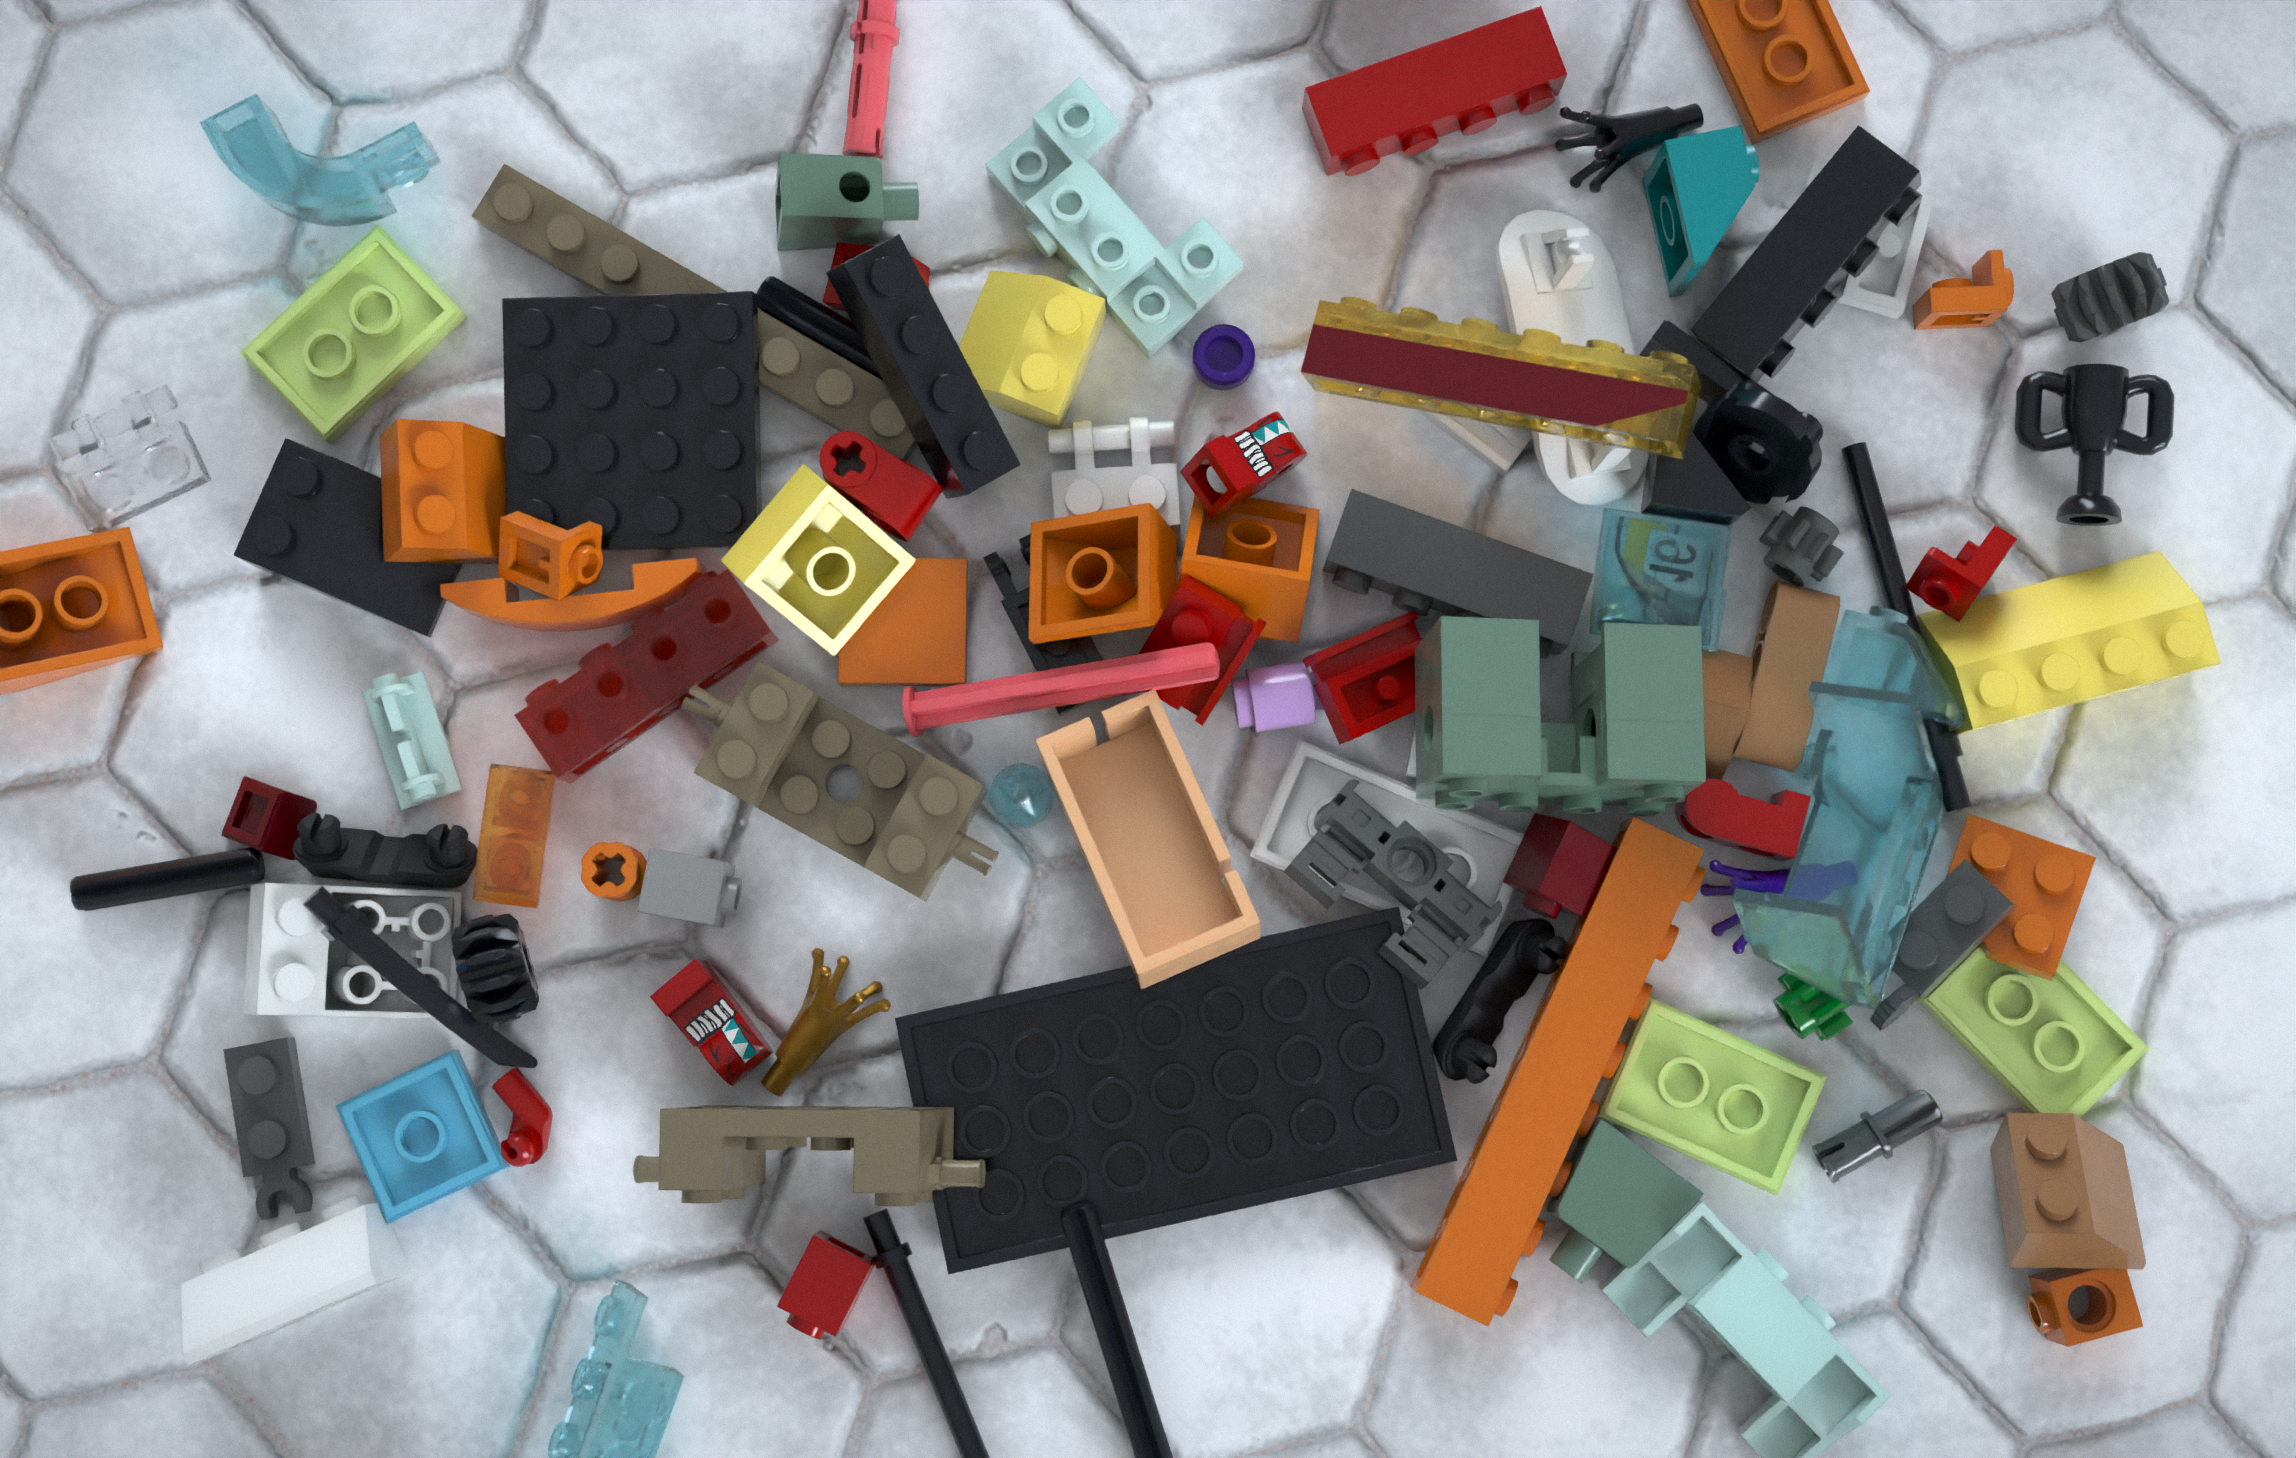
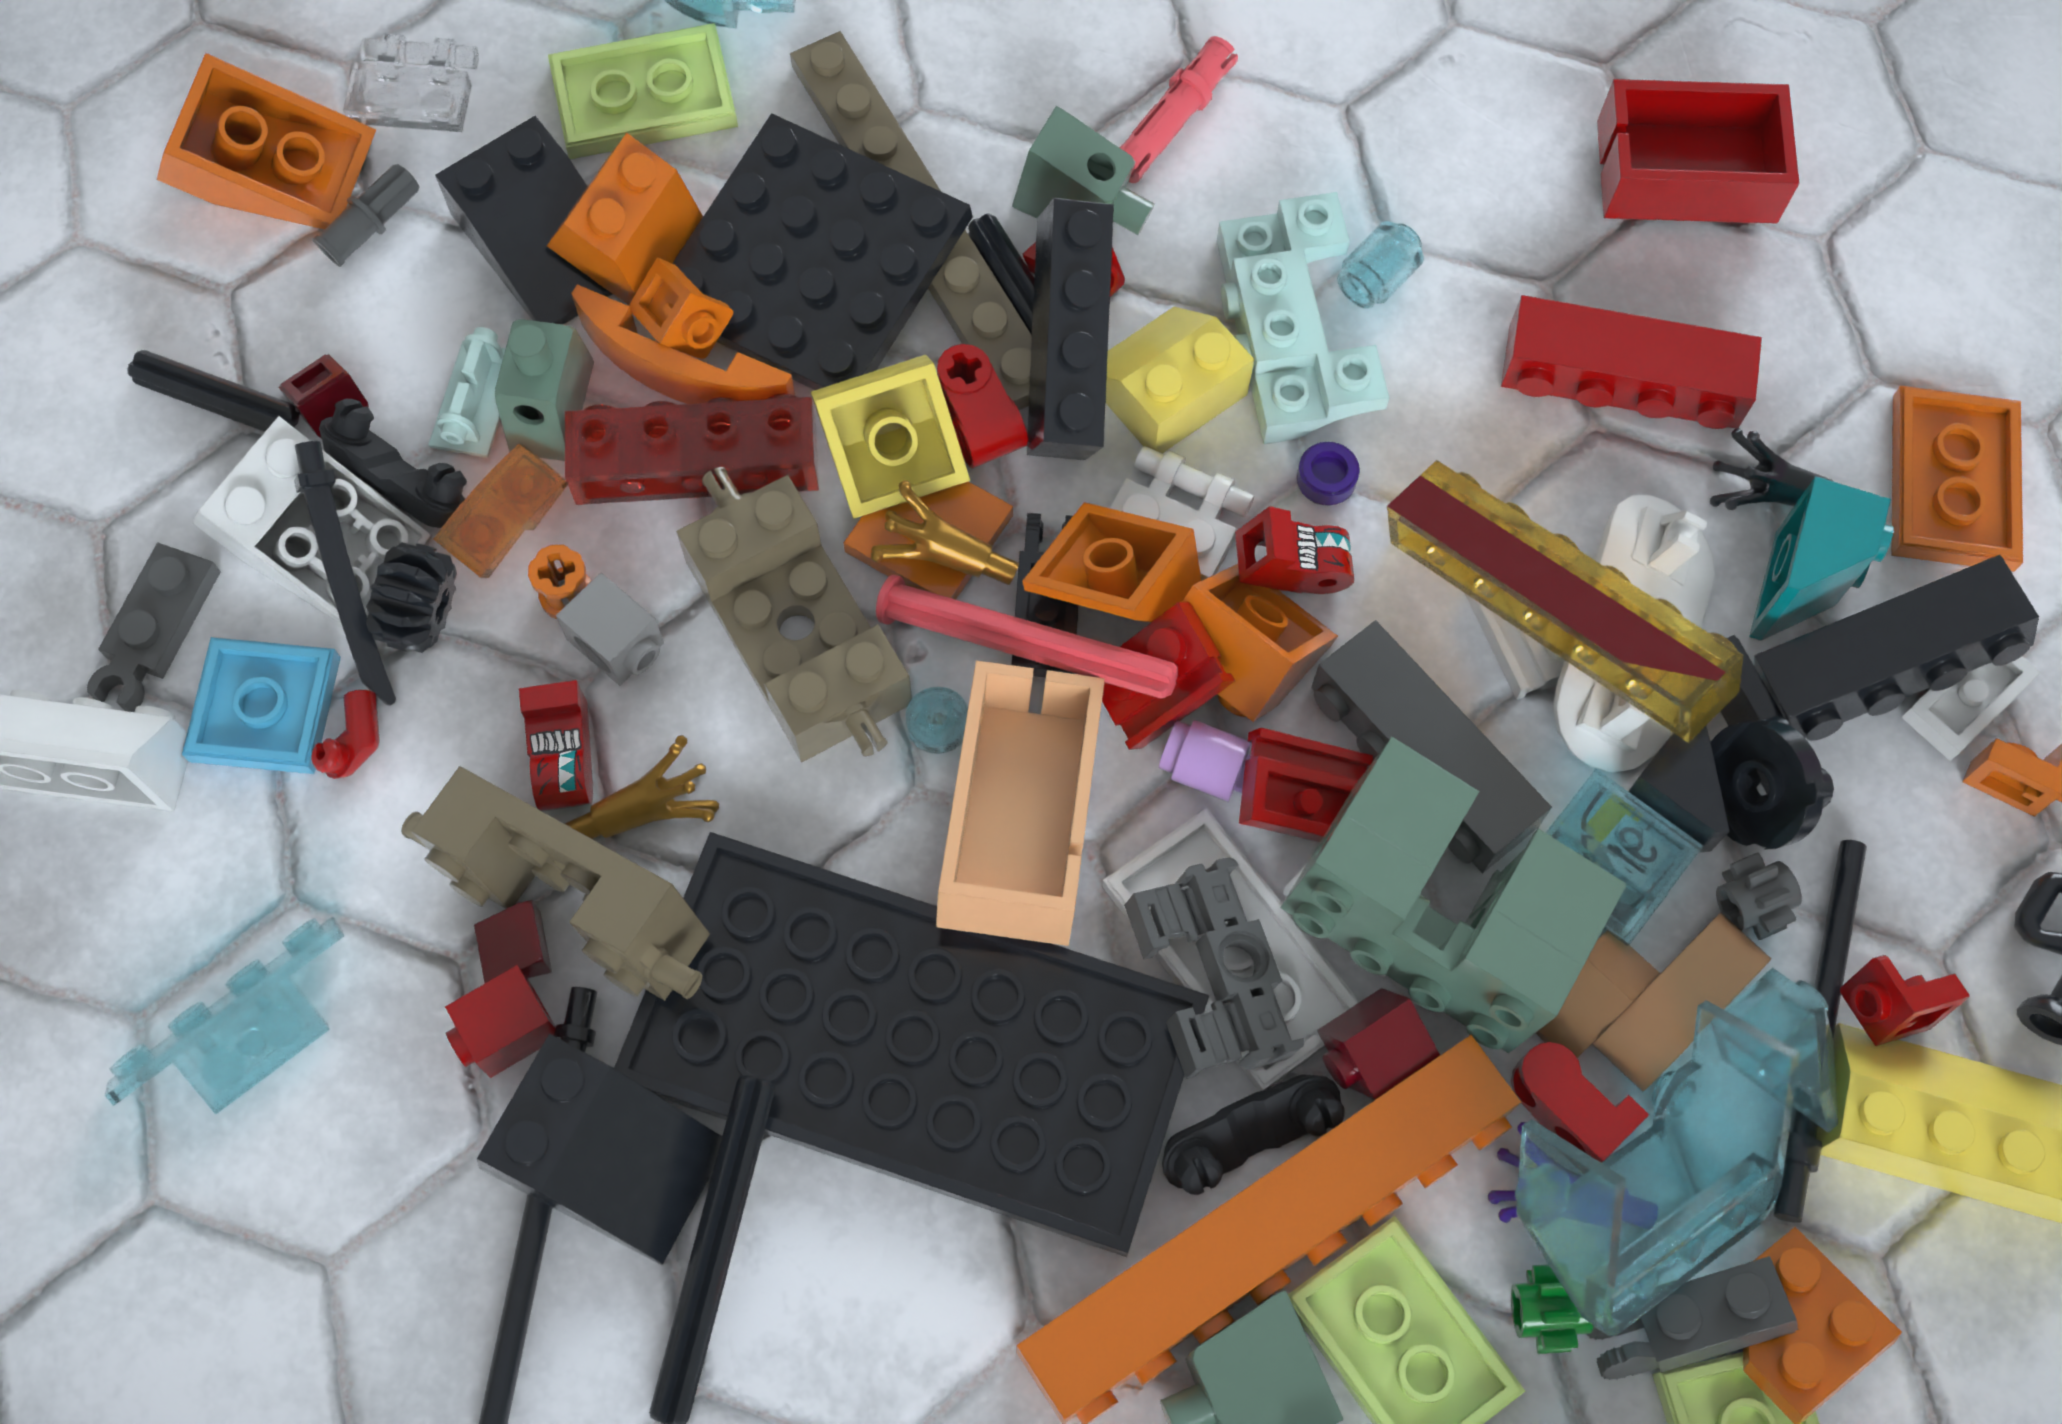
camera: 30 degrees right, 15 degrees down
(184, 619) = (367, 214): none -> dark grey axle
(474, 699) = (543, 371): none -> sand green torso
(788, 1212) = (511, 940): none -> dark red slope
(927, 638) = (942, 543): none -> pearl gold piece
(983, 1340) = (602, 1150): none -> black slope
(1156, 120) = (1380, 264): none -> clear light blue brick

